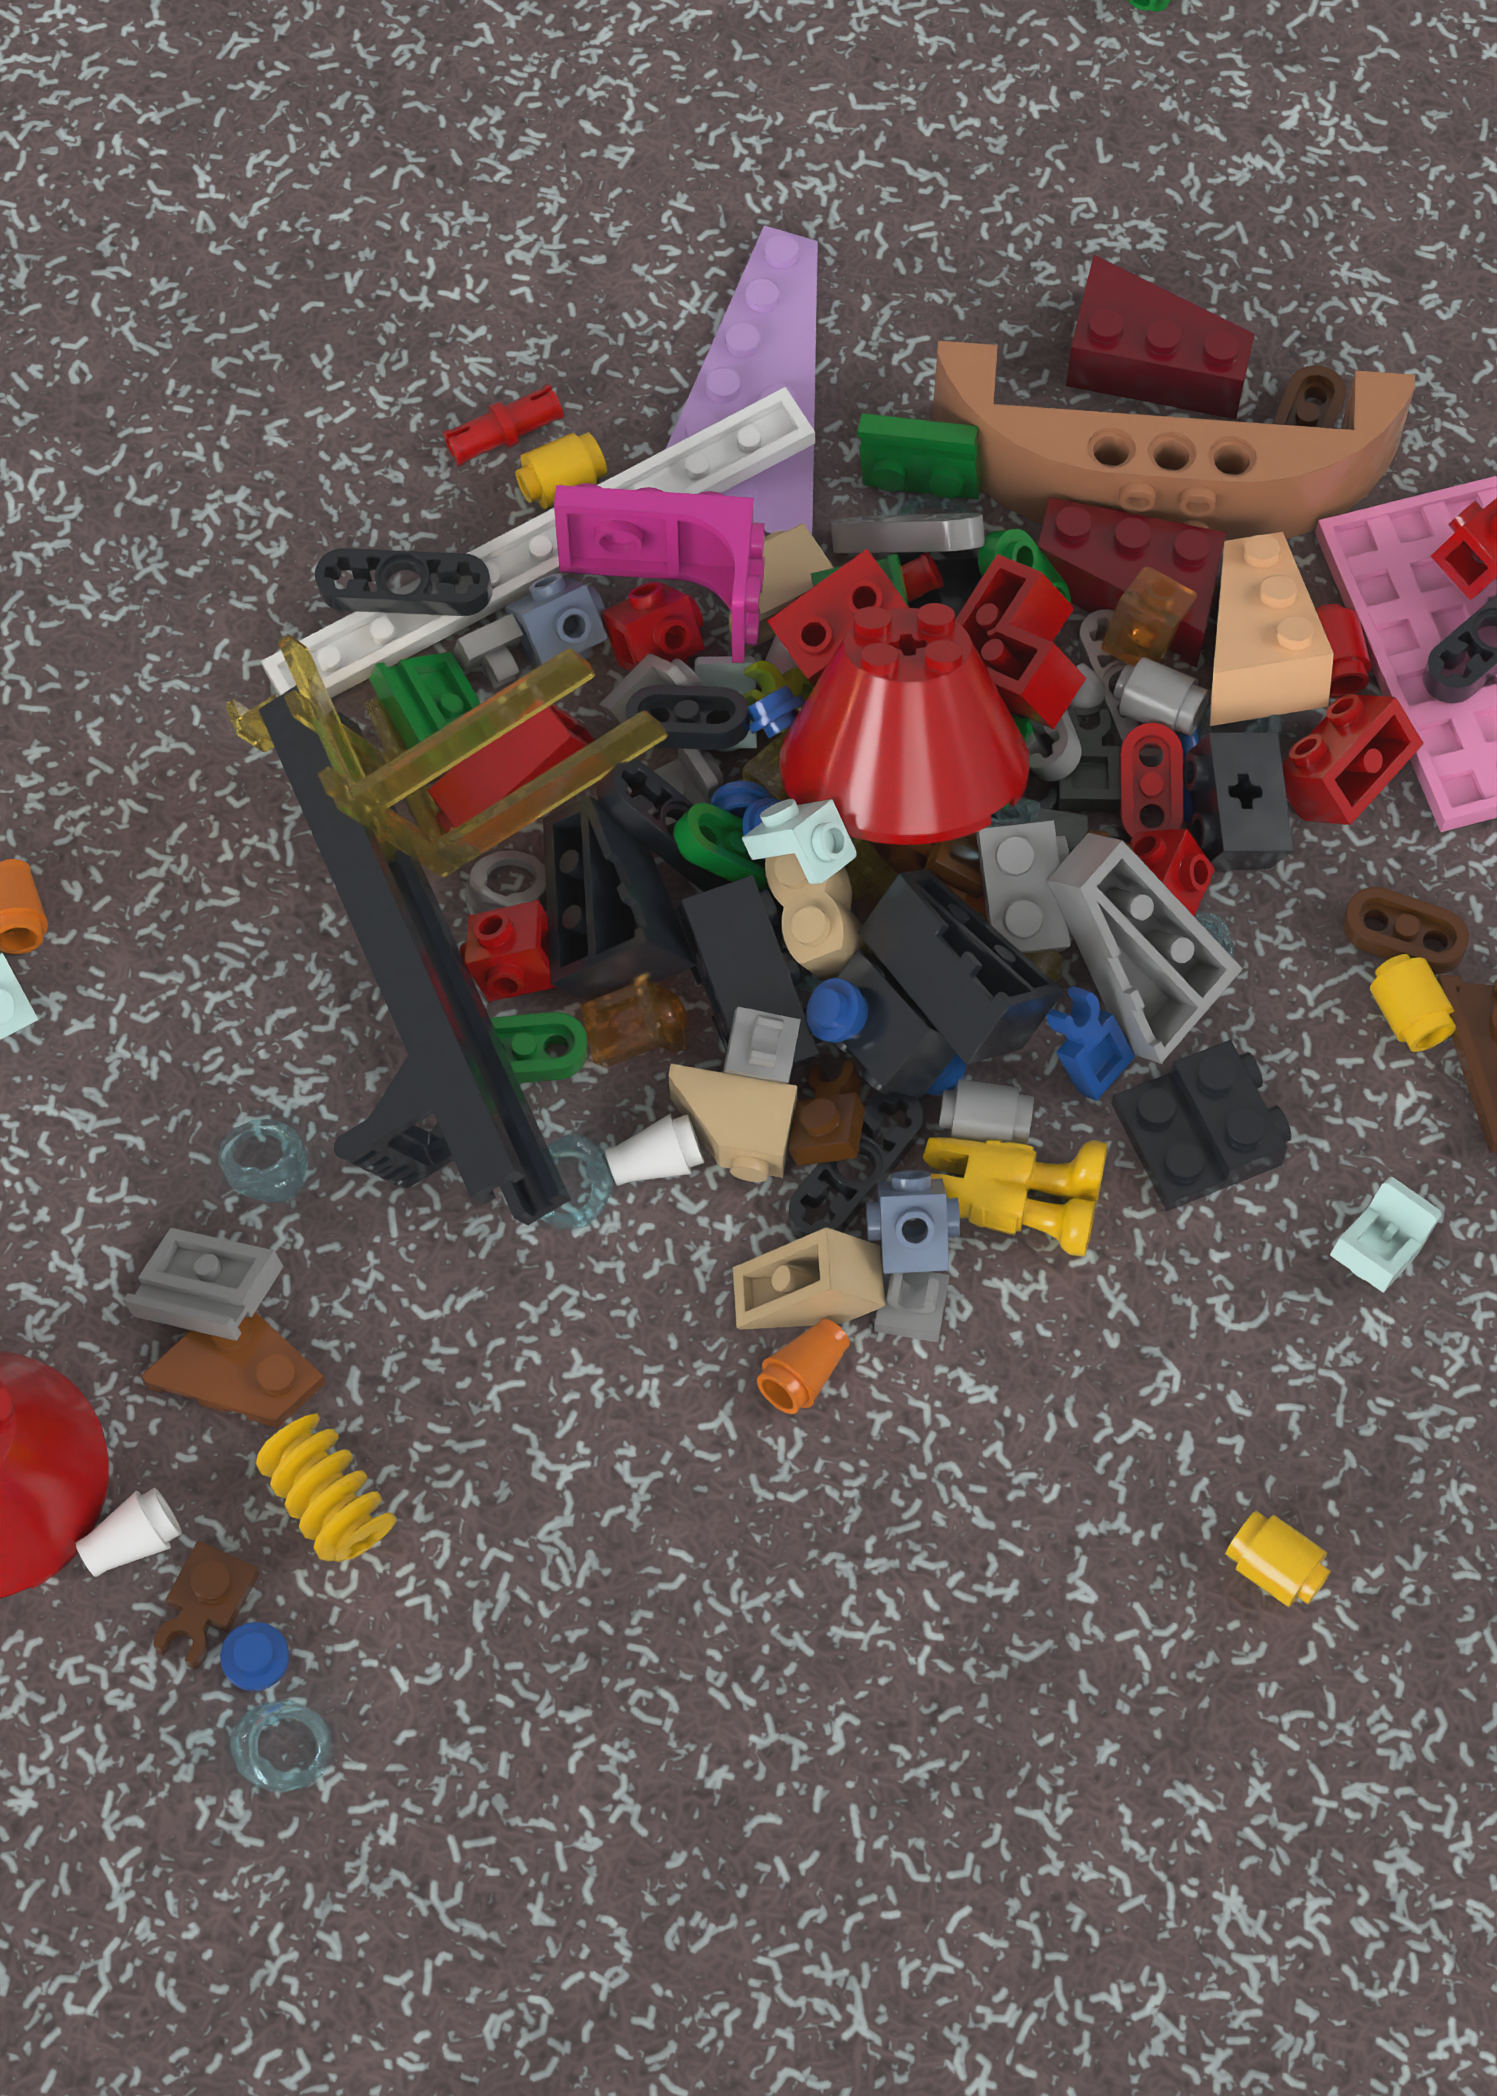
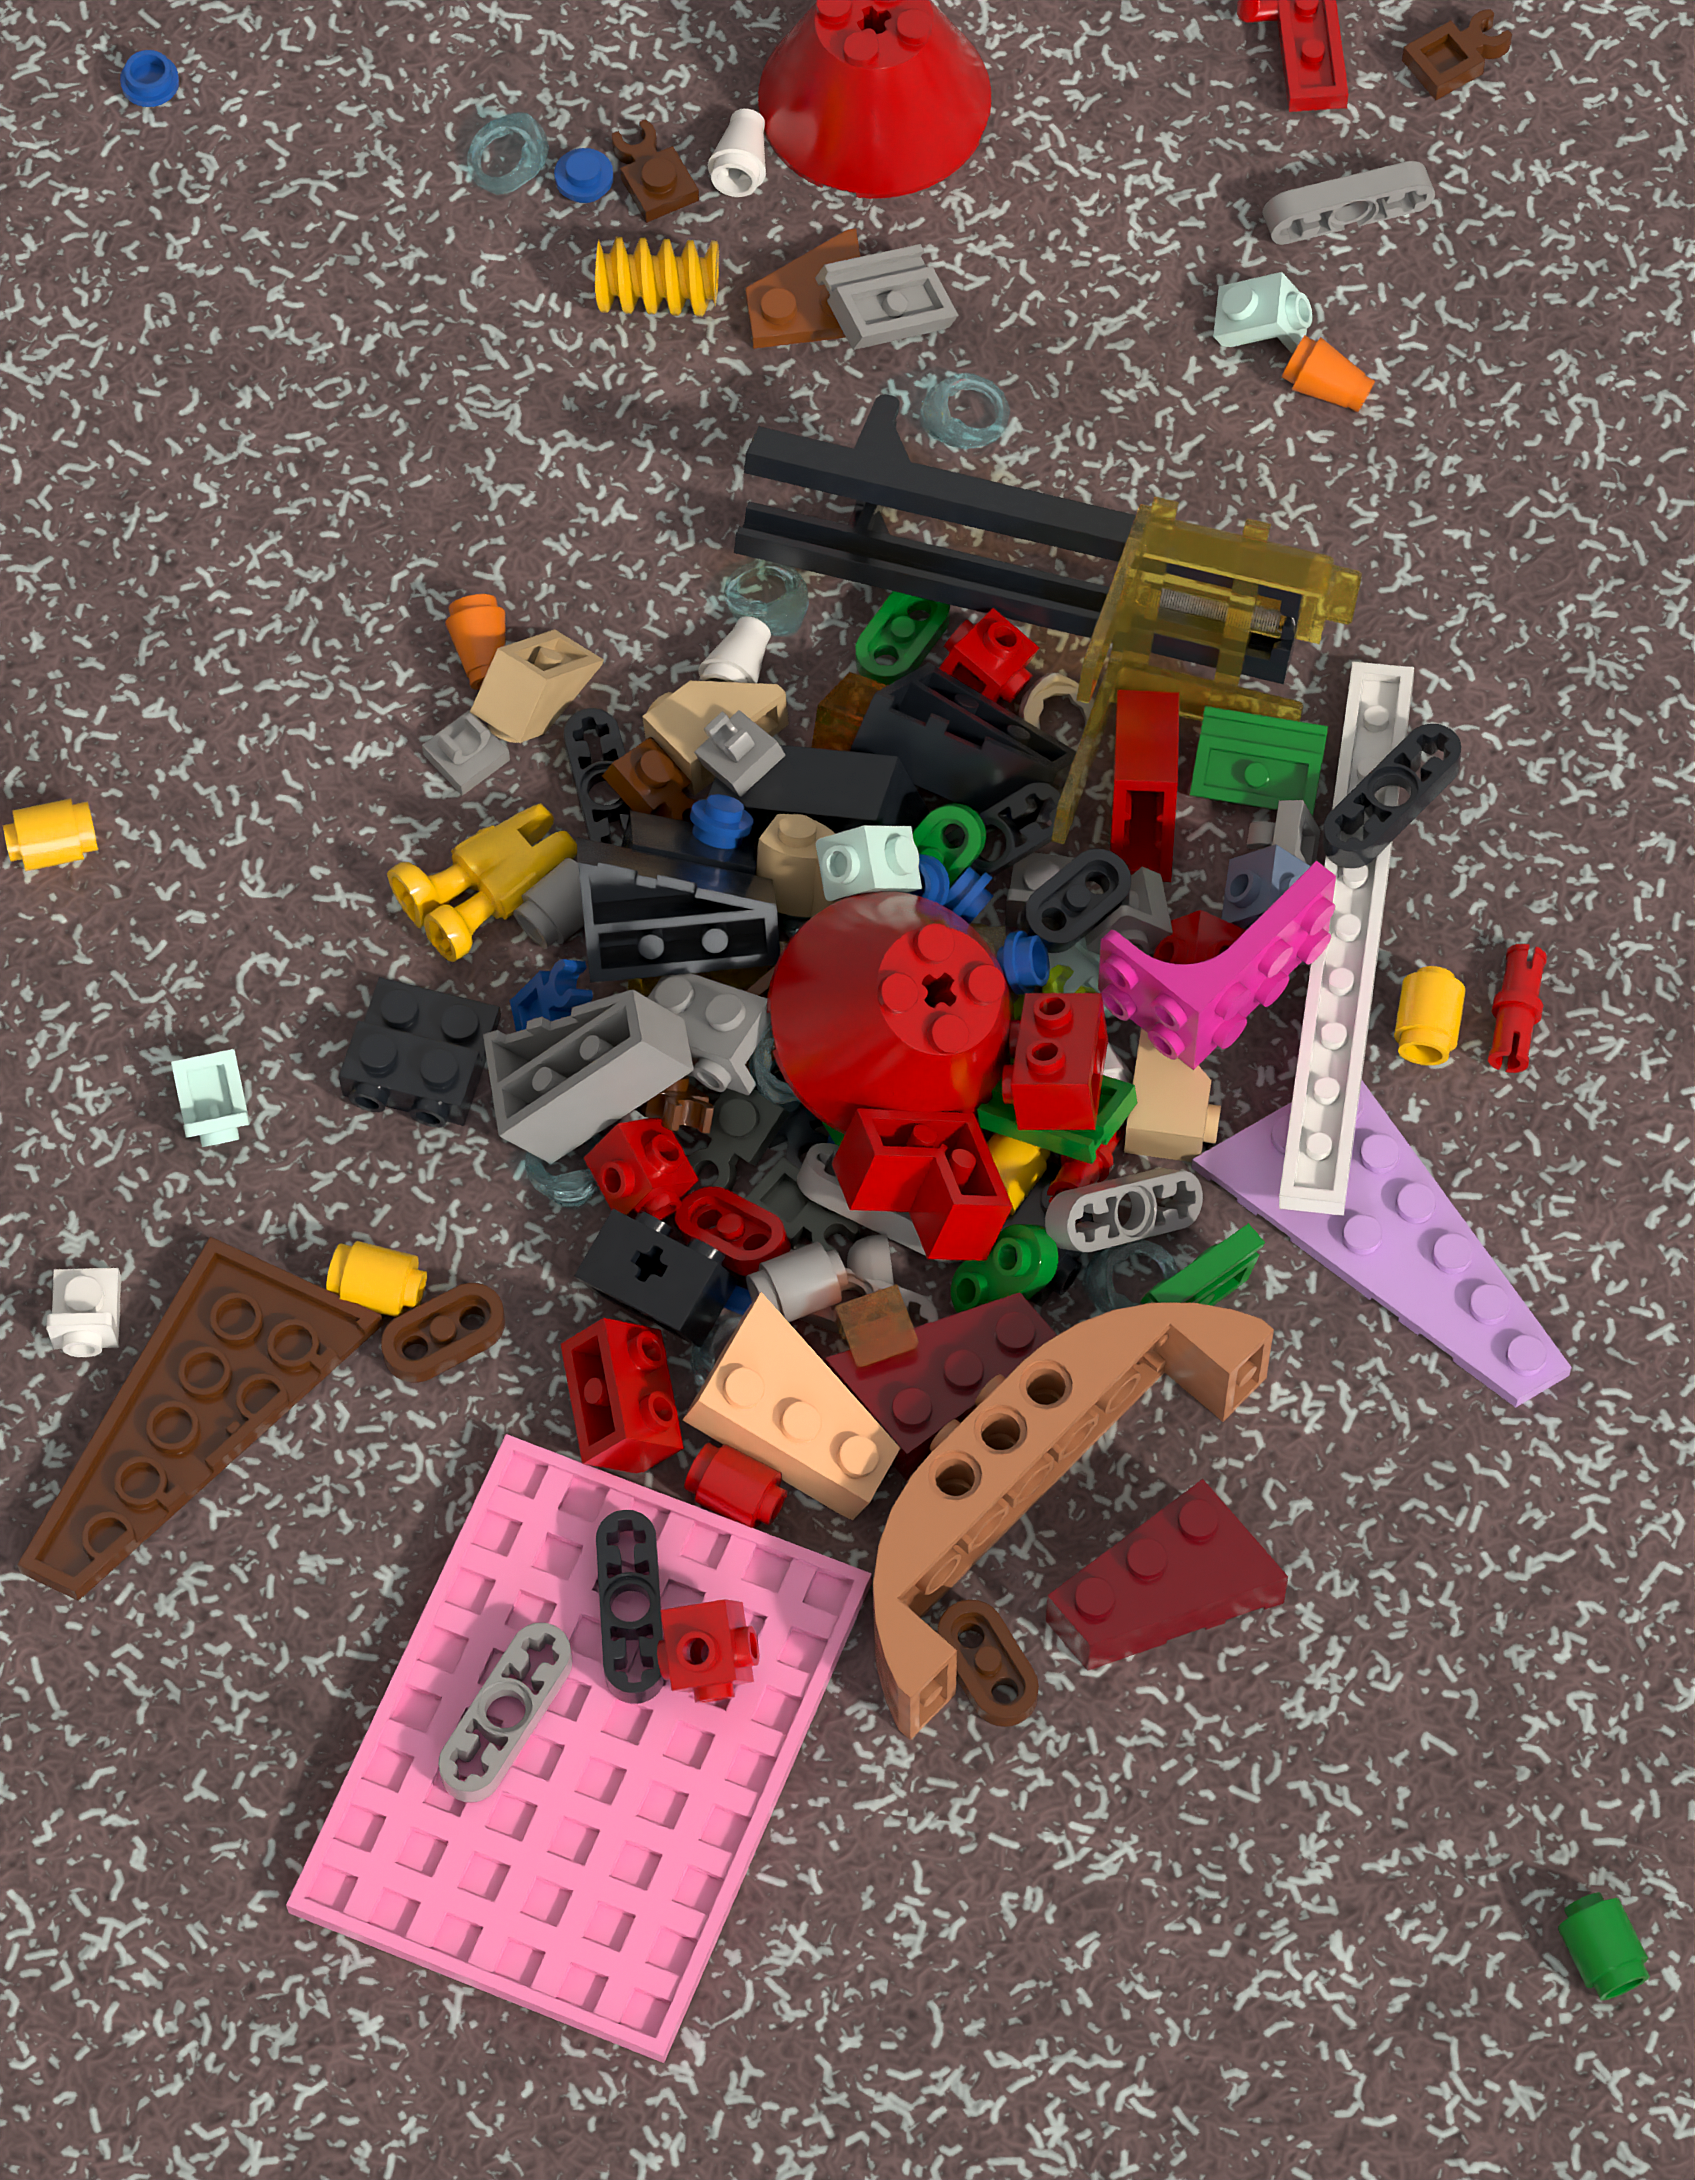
camera: 130 degrees right, 0 degrees up
(918, 1243) = (510, 764): sand blue brick -> none

